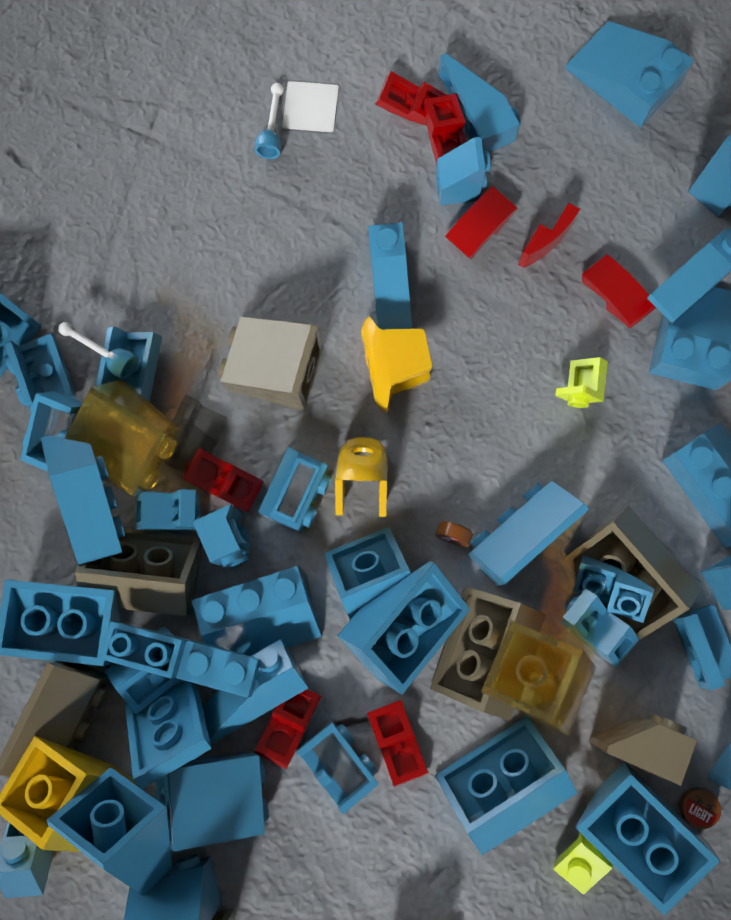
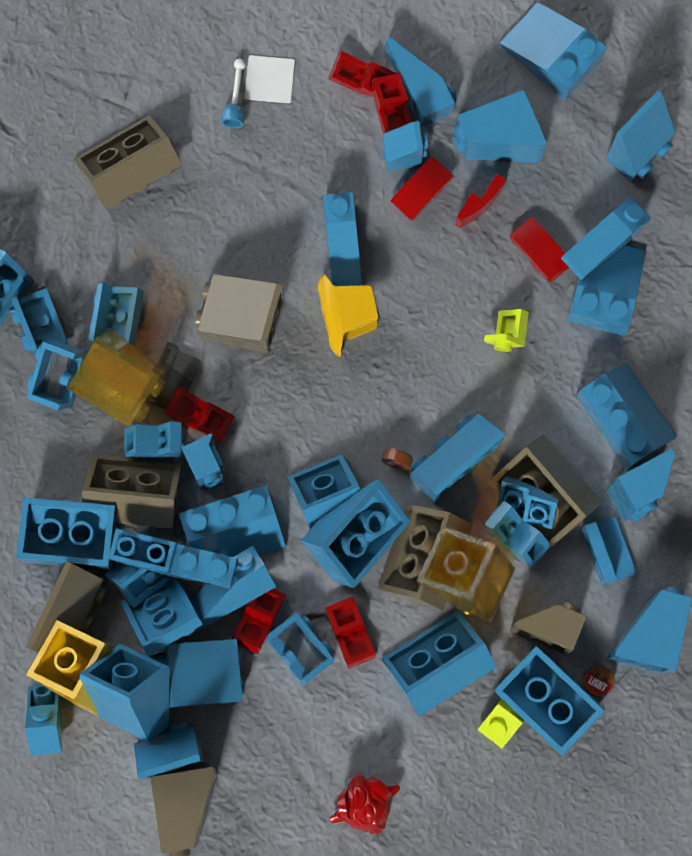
camera: 10 degrees left, 0 degrees up
(83, 499) = (87, 429): dark azure slope -> none
(118, 361) = (109, 313): hinge -> none
(150, 195) = (128, 162): none -> dark tan slope
(295, 490) = (262, 424): dark azure window -> none
(361, 468) = (319, 403): yellow piece -> none
(574, 154) = (500, 131): none -> dark azure slope

